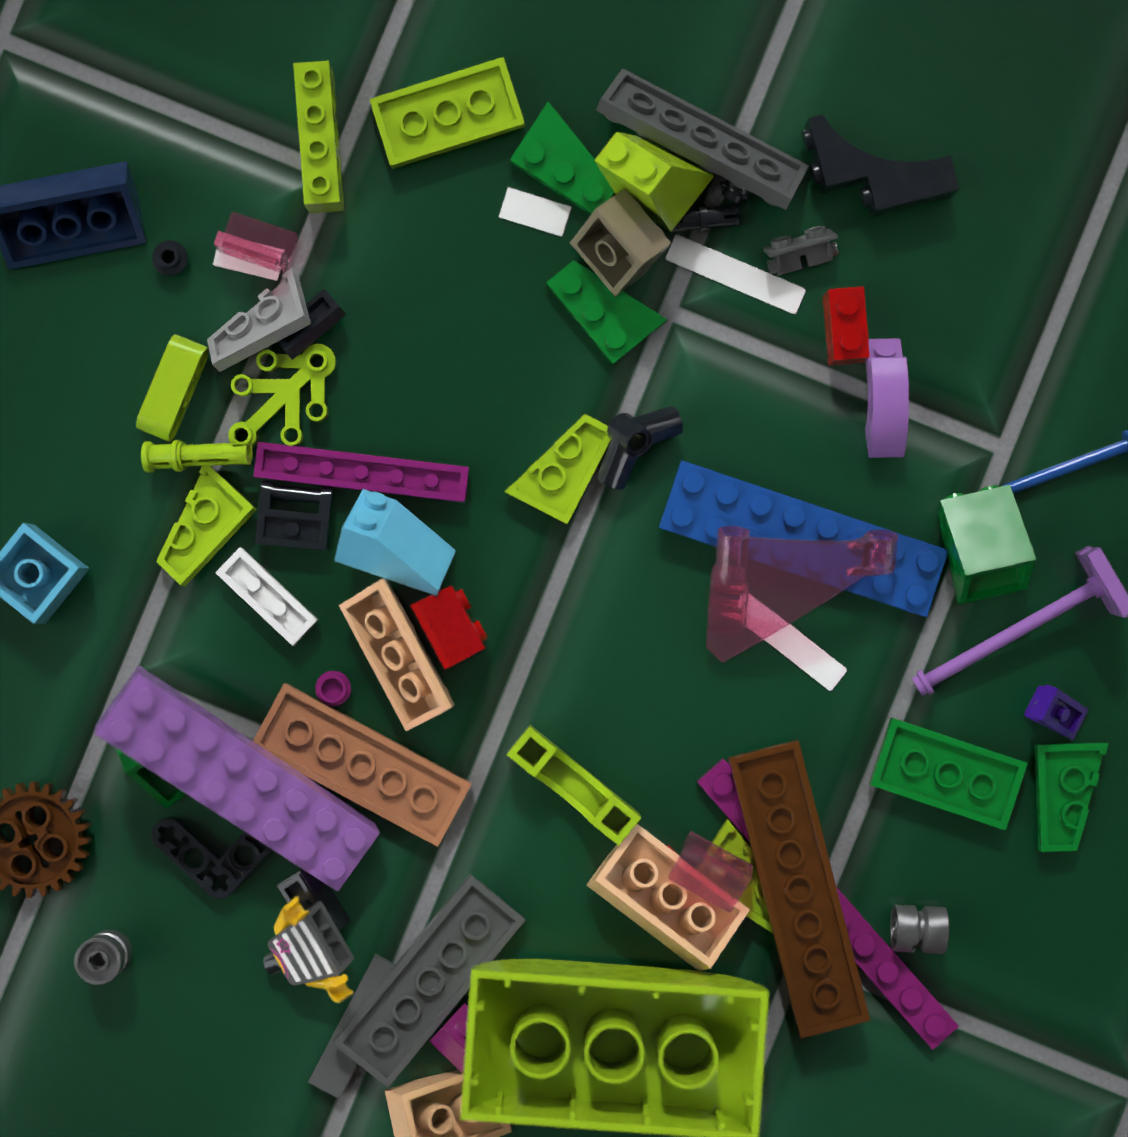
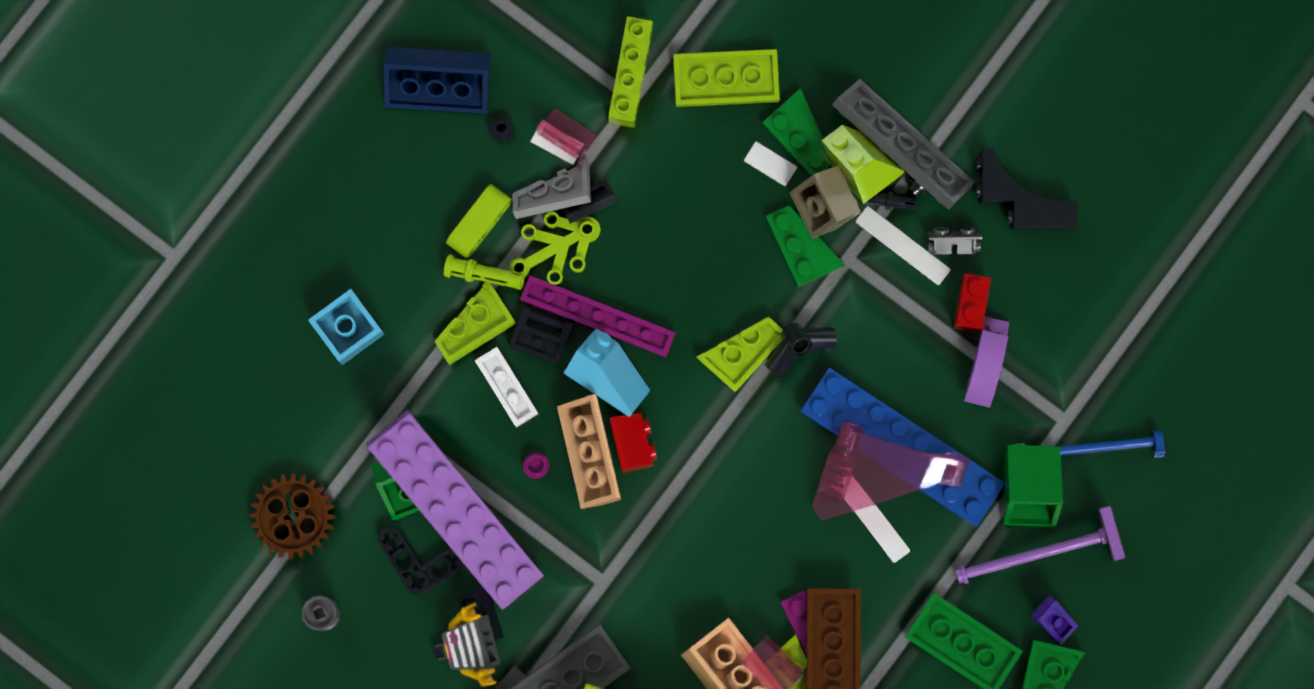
camera: 20 degrees right, 5 degrees down
(362, 764) = (543, 525): nougat plate -> none
(574, 784) = (691, 578): lime arch -> none

